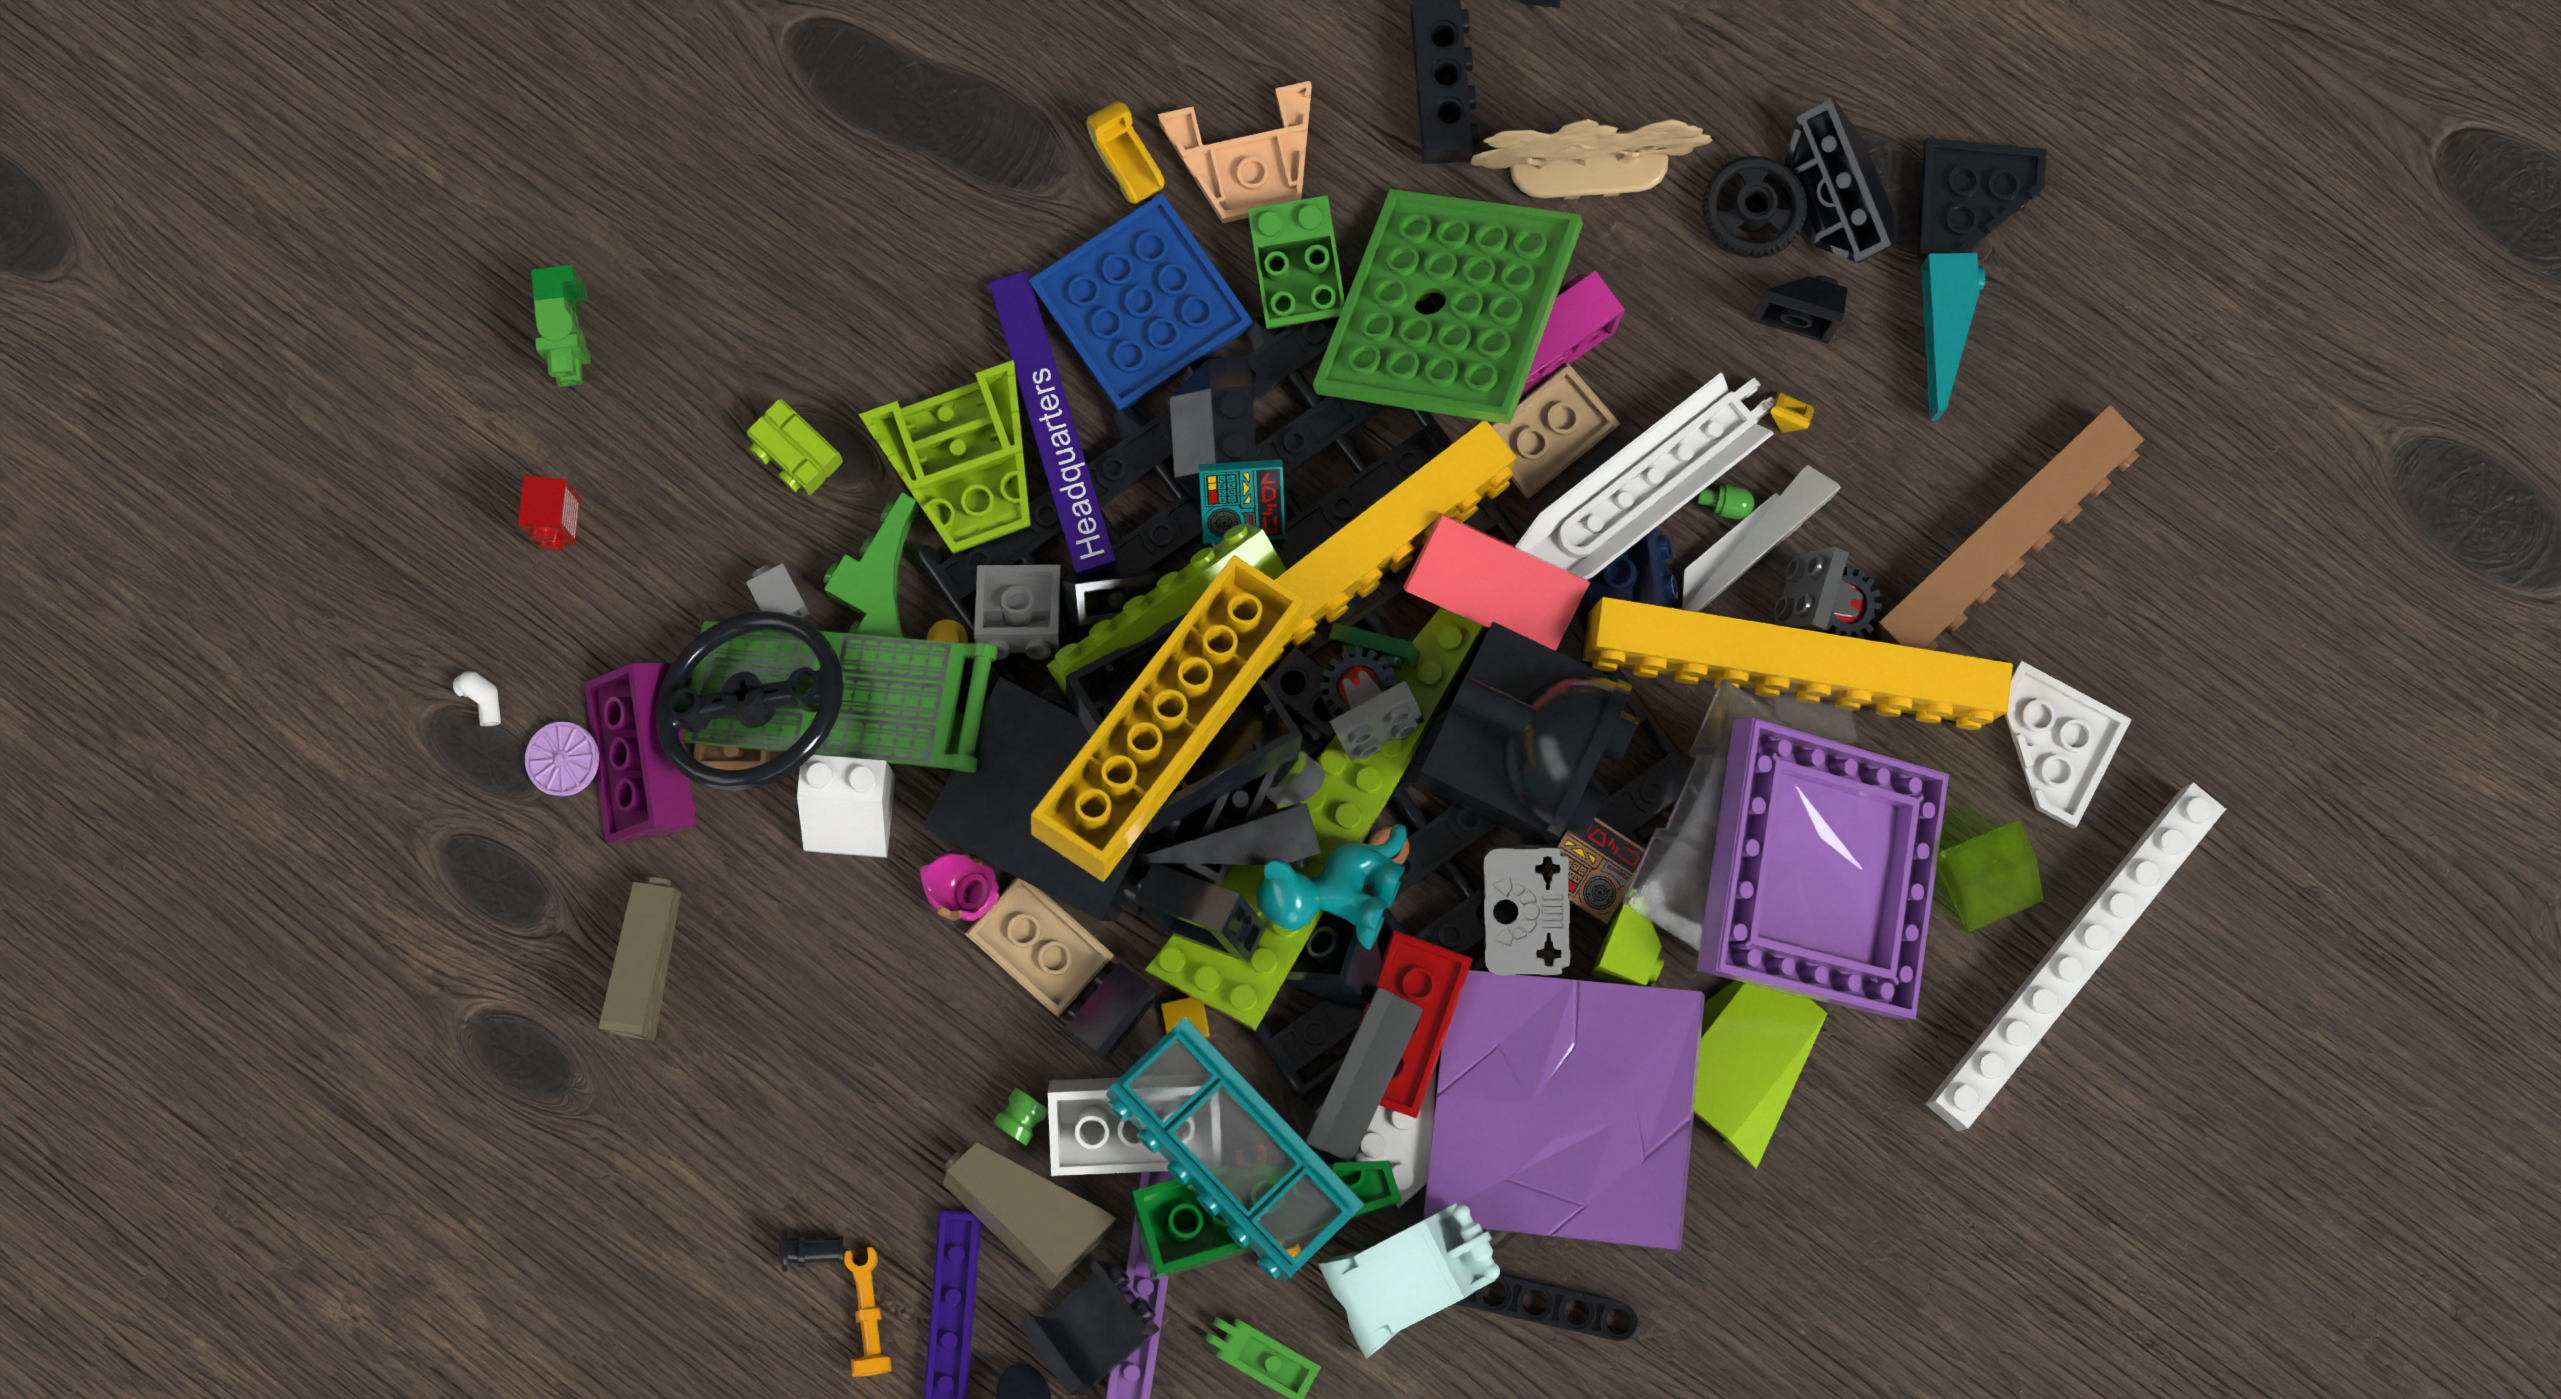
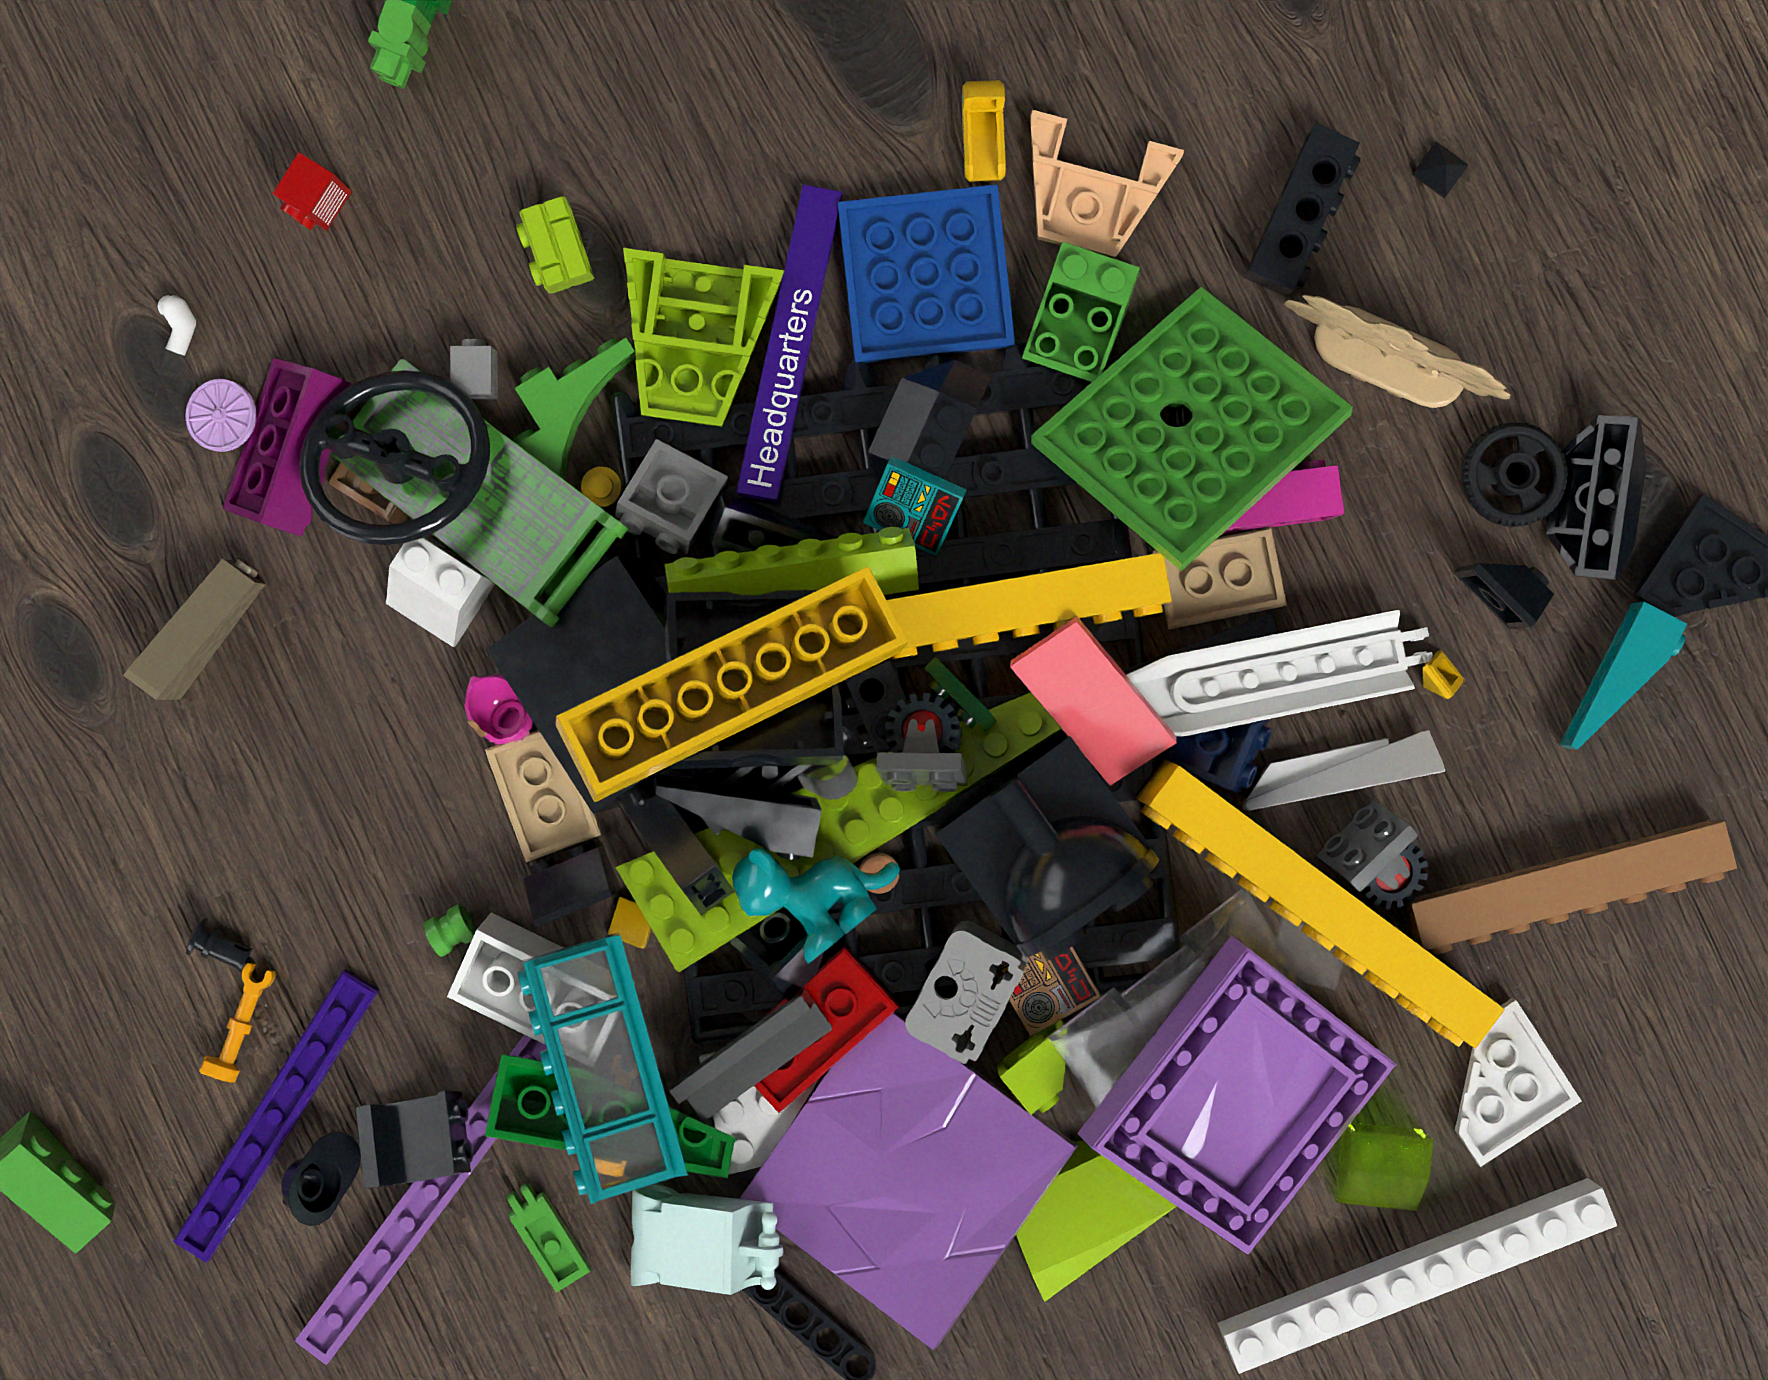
camera: 30 degrees right, 10 degrees up
(1028, 1213) = (413, 1016): dark tan slope -> none
(1728, 501) = (1342, 725): bright green cylinder -> none

